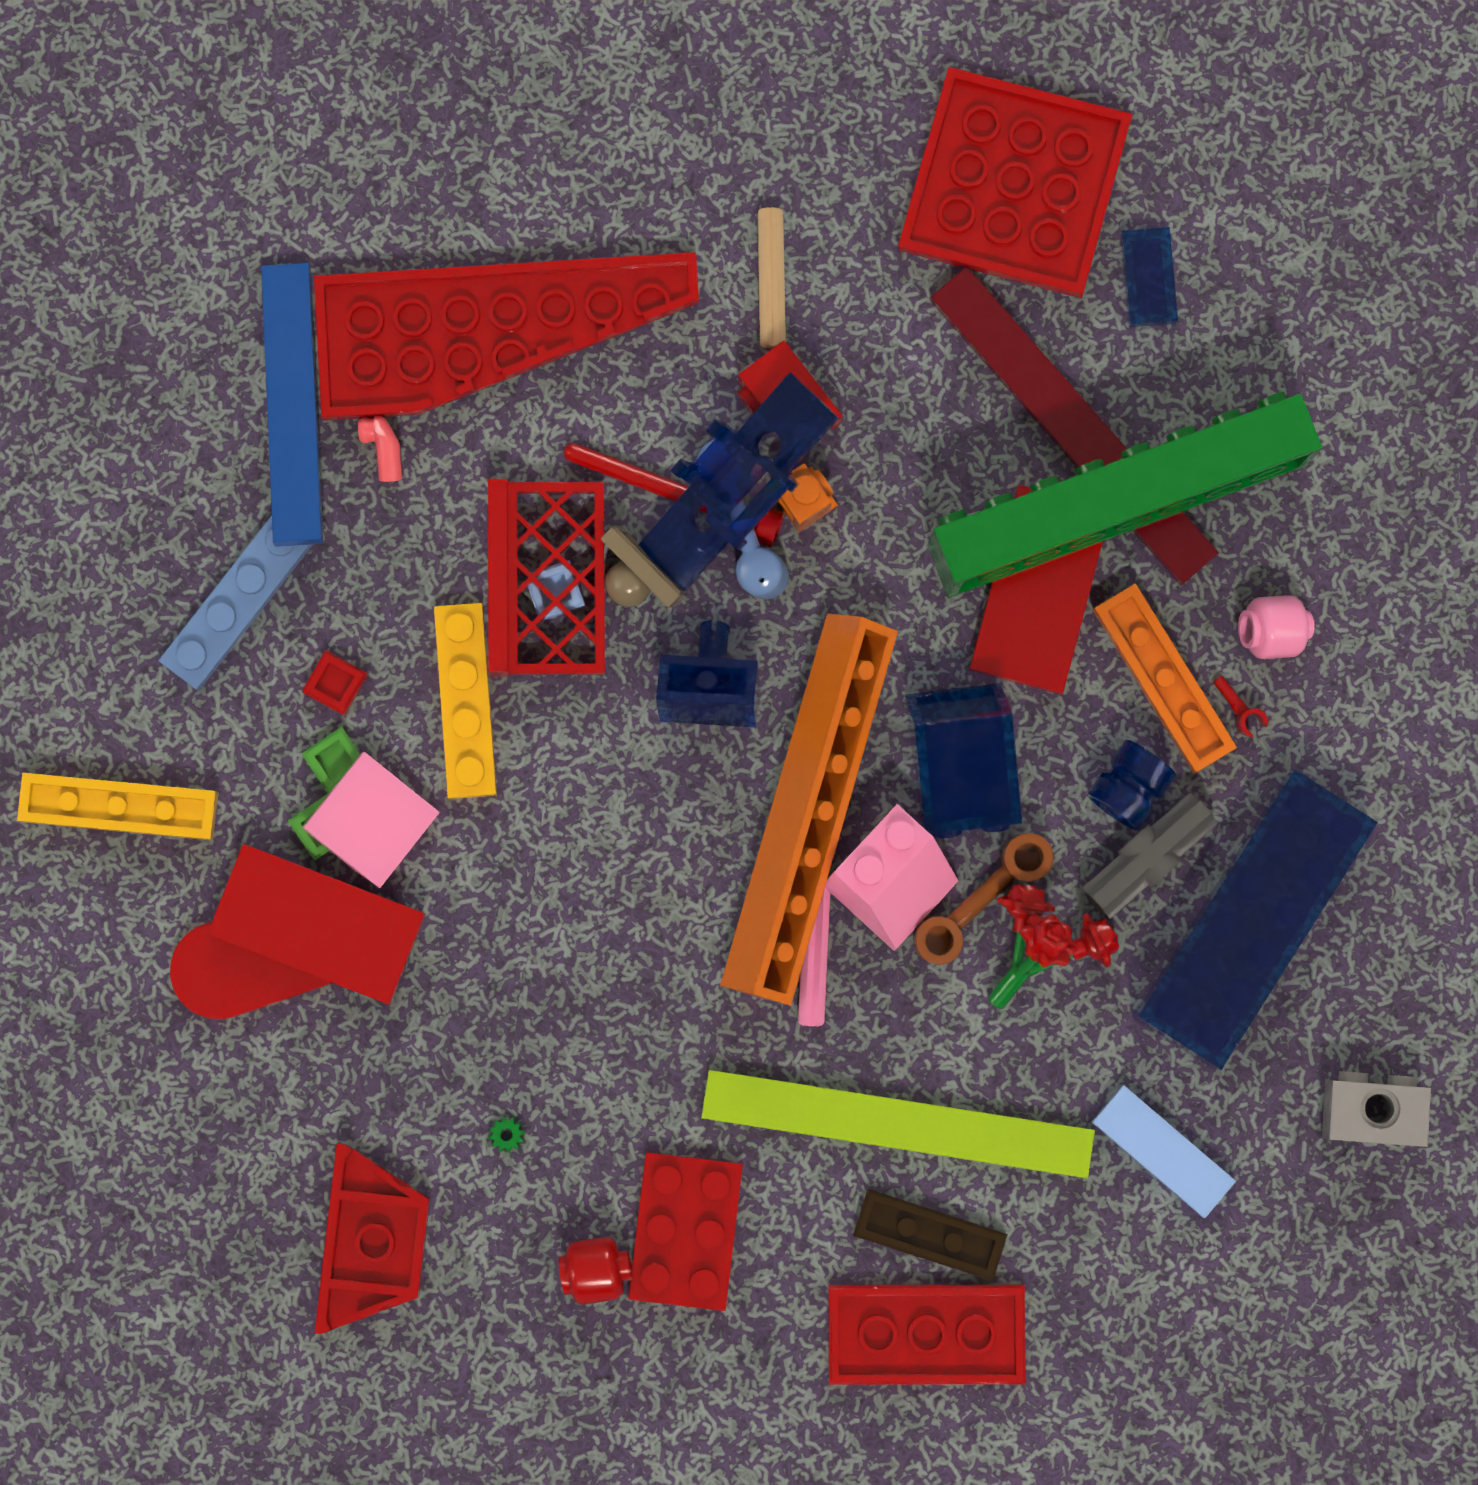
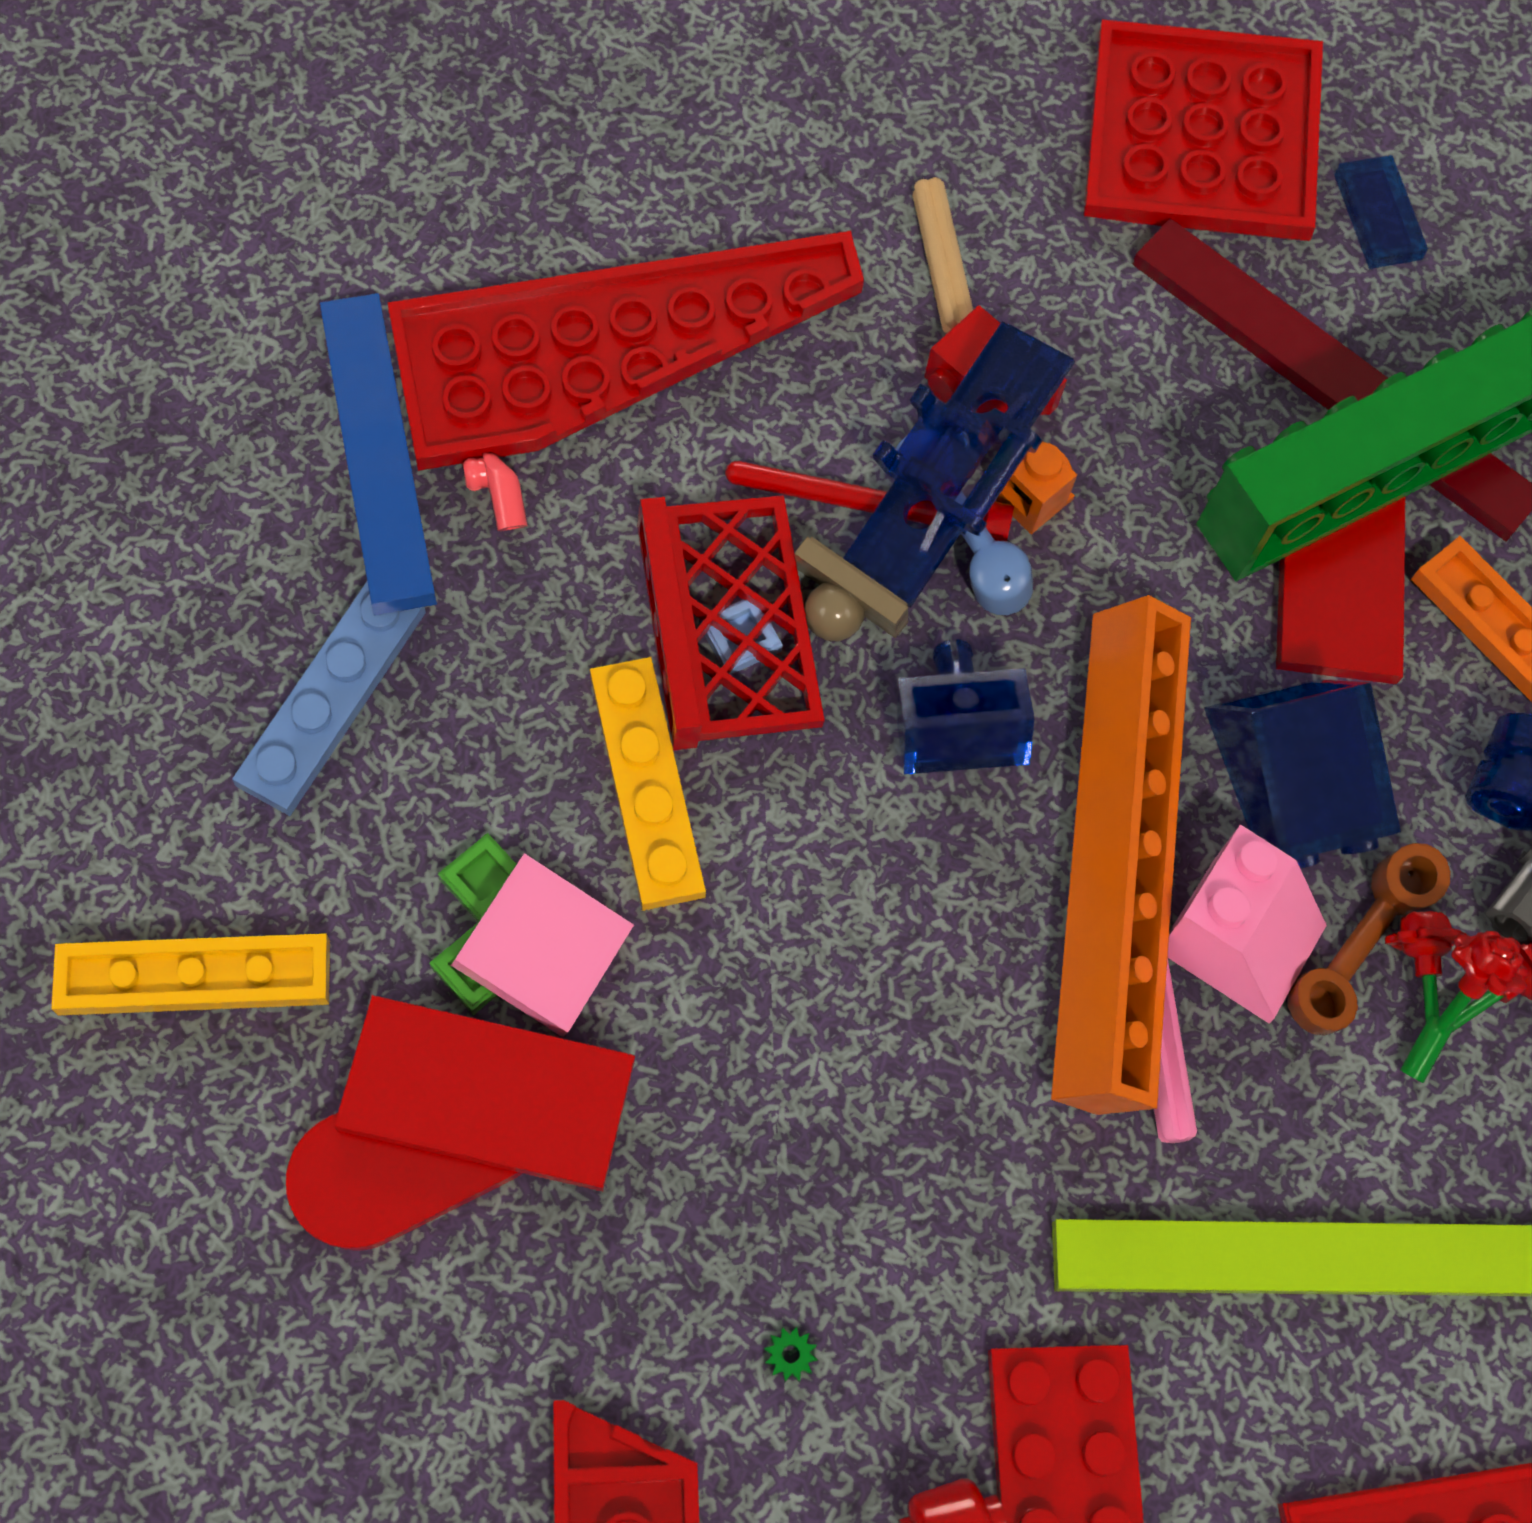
camera: 15 degrees left, 15 degrees down
(335, 683) = (471, 781): red tile -> none
(930, 1234) = (1402, 1408): dark brown tile -> none

